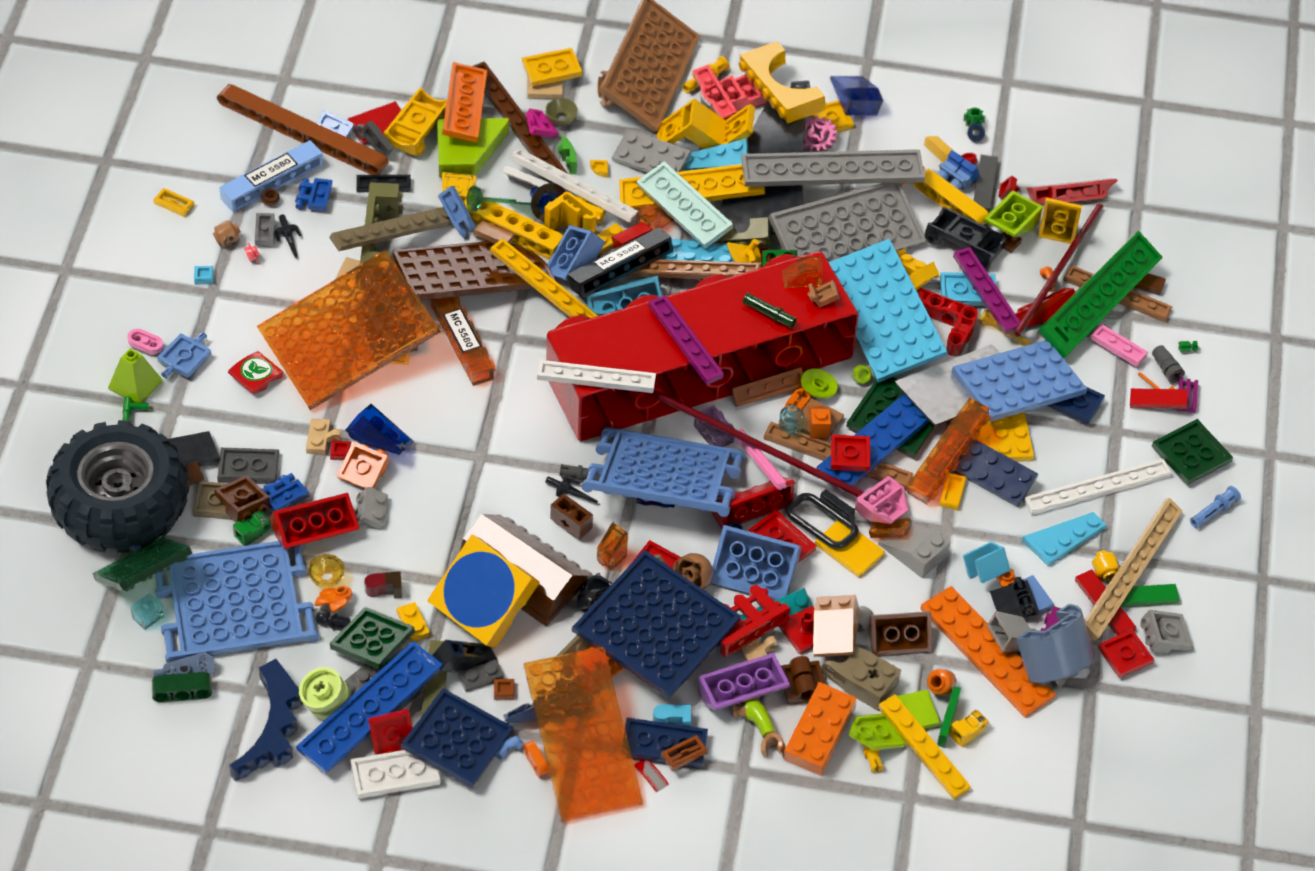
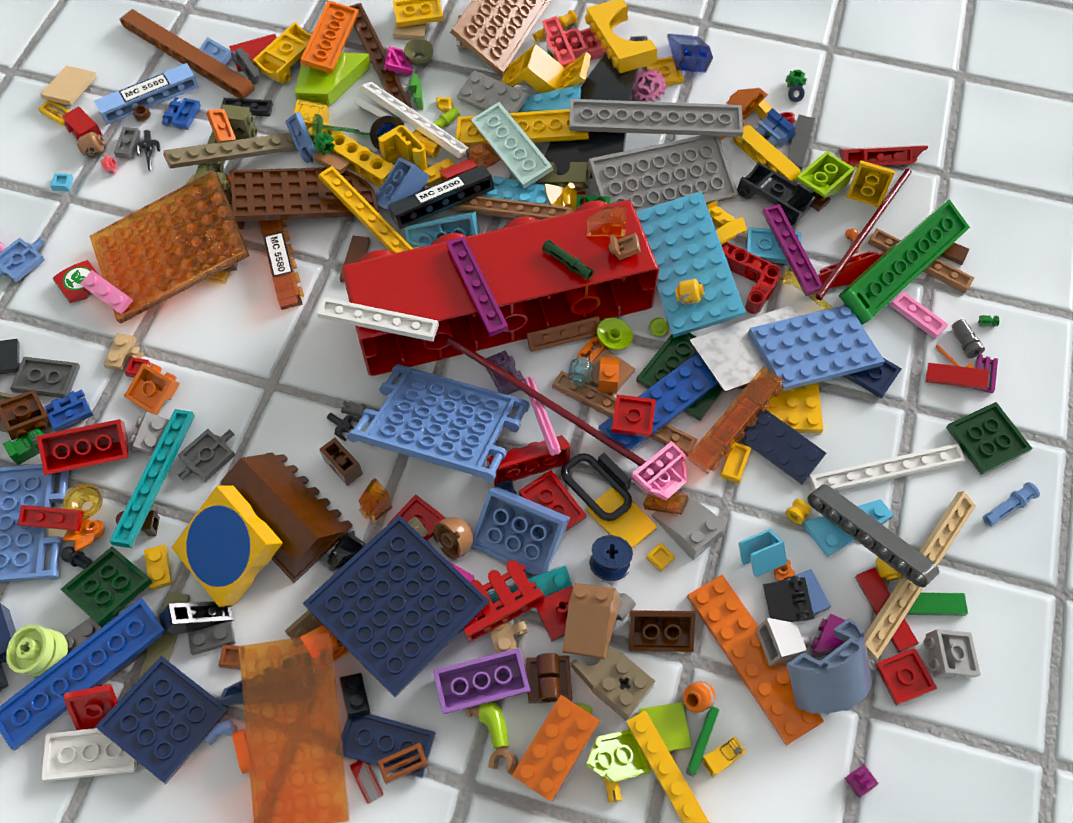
camera: 10 degrees right, 10 degrees up
(180, 172) = (68, 85): none -> tan tile
(208, 213) = (79, 123): none -> red brick
(293, 379) = (106, 292): none -> bright pink plate
(301, 585) = (50, 518): none -> red tile
(376, 204) = (220, 125): none -> orange plate
(378, 431) = (172, 353): clear blue slope -> none
(392, 542) = (152, 479): none -> teal plate
(434, 522) = (206, 455): none -> dark grey plate
(485, 215) = (324, 142): none -> green gear
(538, 331) = (358, 248): none -> reddish brown tile
(604, 183) = (445, 119): none -> lime pin
(630, 708) = (354, 695): none -> black plate
(673, 714) = (401, 709): medium azure leg -> none
(845, 577) = (607, 568): none -> dark blue piece
(890, 335) = (689, 292): none -> yellow head
(891, 577) = (660, 557): none -> yellow tile
(925, 141) = (748, 99): none -> orange slope
(1008, 186) = (821, 147): red tile -> none
(1016, 527) = (798, 511): none -> yellow wheel
(1085, 537) = (873, 535): none -> dark grey beam
(1093, 736) = (861, 781): none -> magenta tile

